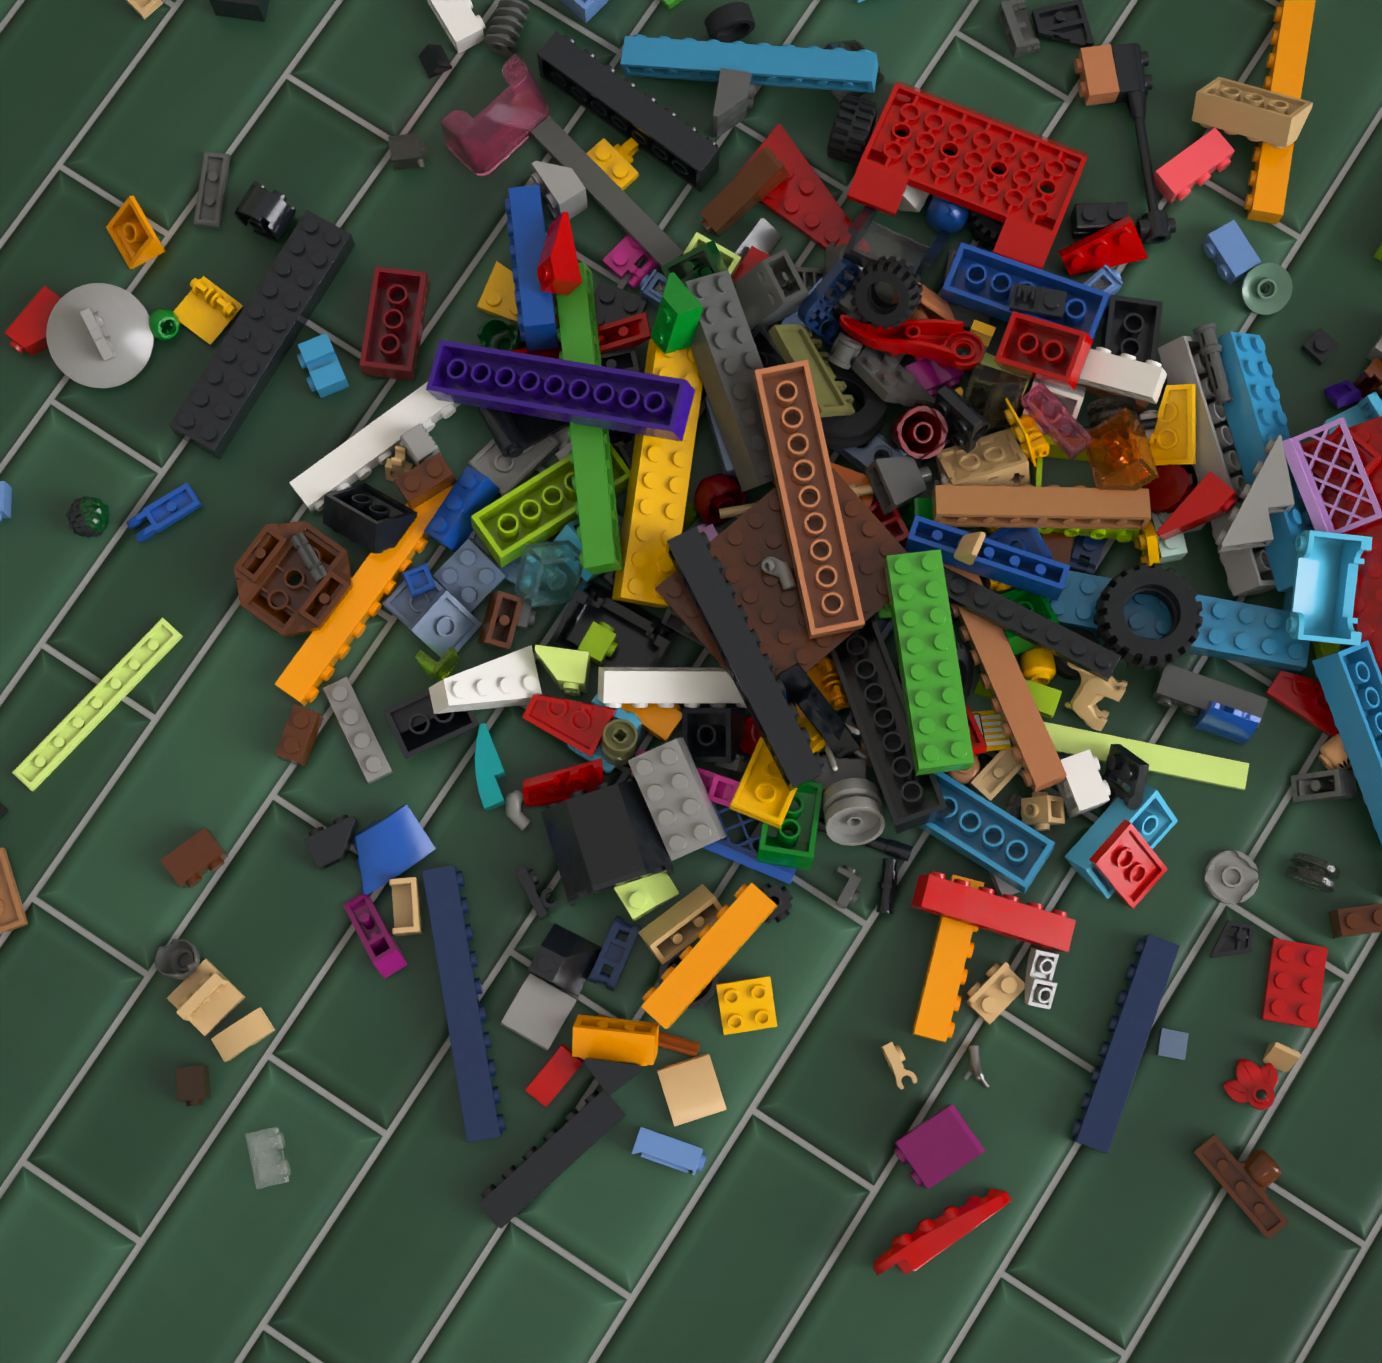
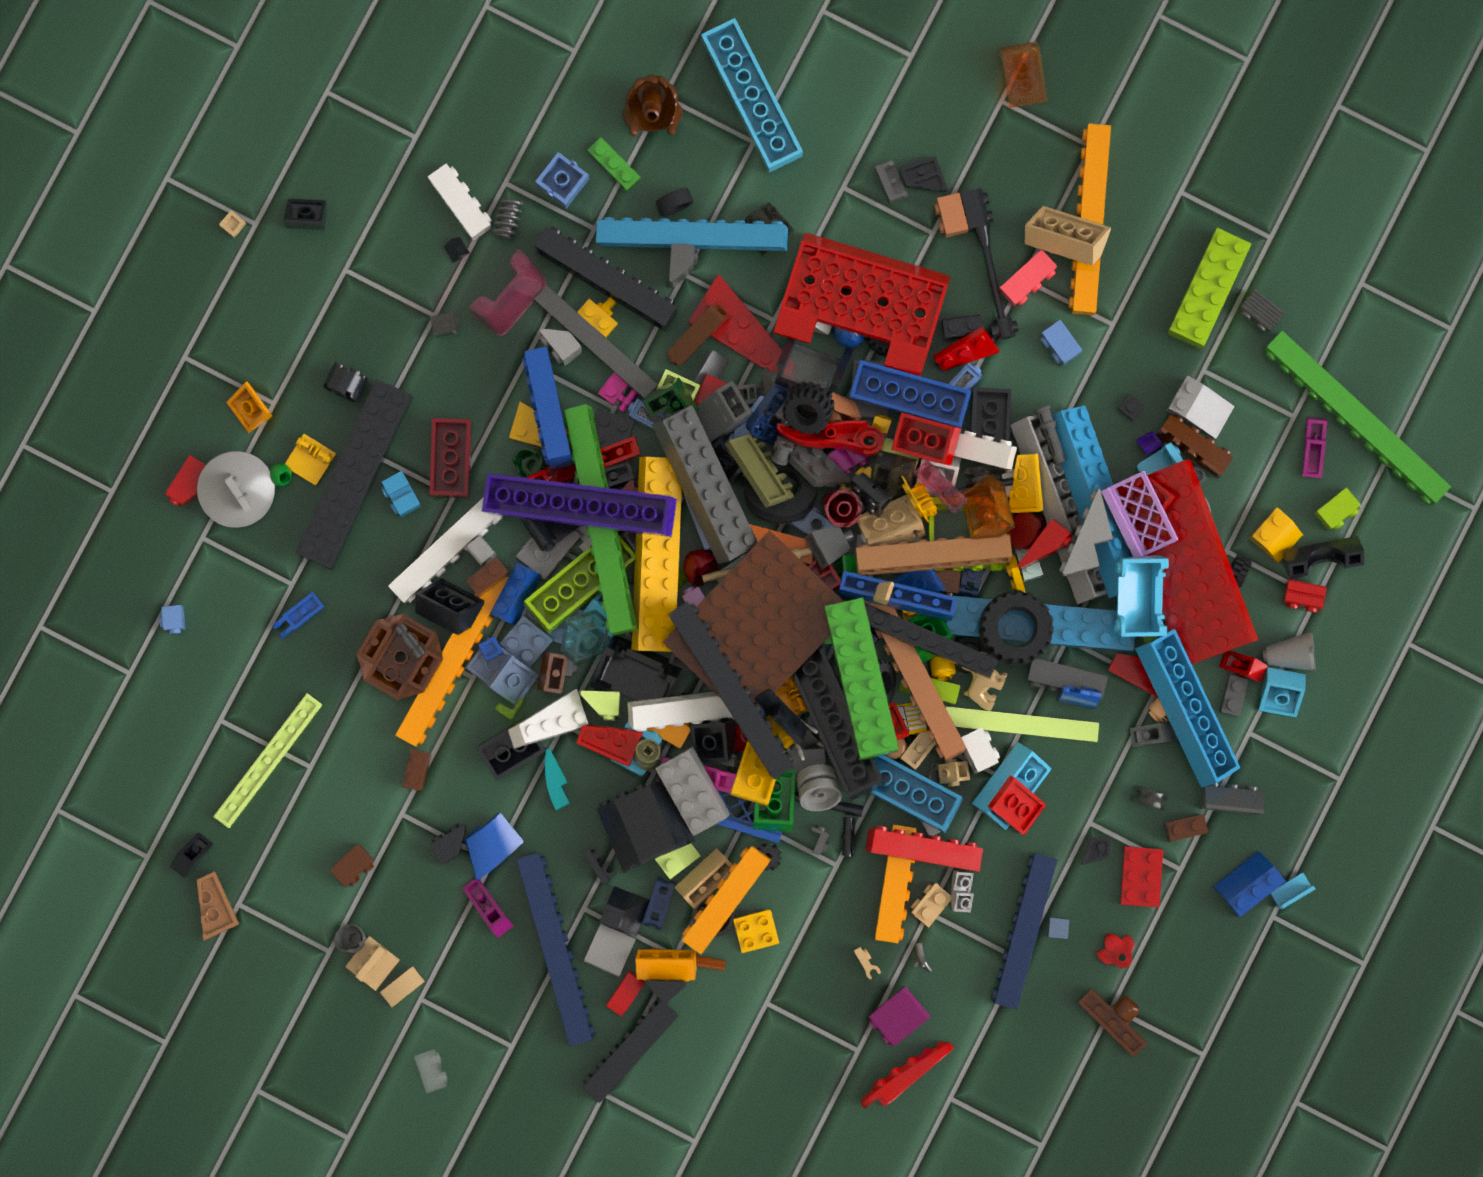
camera: 10 degrees left, 5 degrees up
(88, 516) = (244, 625): piece -> none
(193, 1084) = (371, 1025): dark brown brick -> none
(212, 190) = (301, 366): dark grey tile -> none
(357, 730) = (457, 761): light grey plate -> none
(397, 465) = (466, 566): tan plate -> none
(406, 906) = (507, 885): tan panel -> none
(513, 809) = (576, 807): light grey arm -> none
(558, 262) = (567, 407): red slope -> none
(561, 783) = (610, 787): red wing -> none
(599, 642) = (625, 681): lime brick -> none
(669, 1151) = (711, 1038): medium blue window -> none
(676, 317) = (657, 445): green slope -> none
(691, 1089) = (722, 993): tan slope -> none
(779, 569) = (751, 621): light grey arm -> none
(808, 499) = (765, 569): nougat brick -> none
(851, 129) = (773, 278): black tyre -> none
(1038, 301) = (919, 401): black plate -> none
(1129, 769) = (1013, 738): black plate -> none
(1231, 877) = (1092, 805): light grey tile -> none
(1277, 293) = (1092, 375): sand green dish -> none
(1281, 1056) = (1134, 929): tan slope -> none

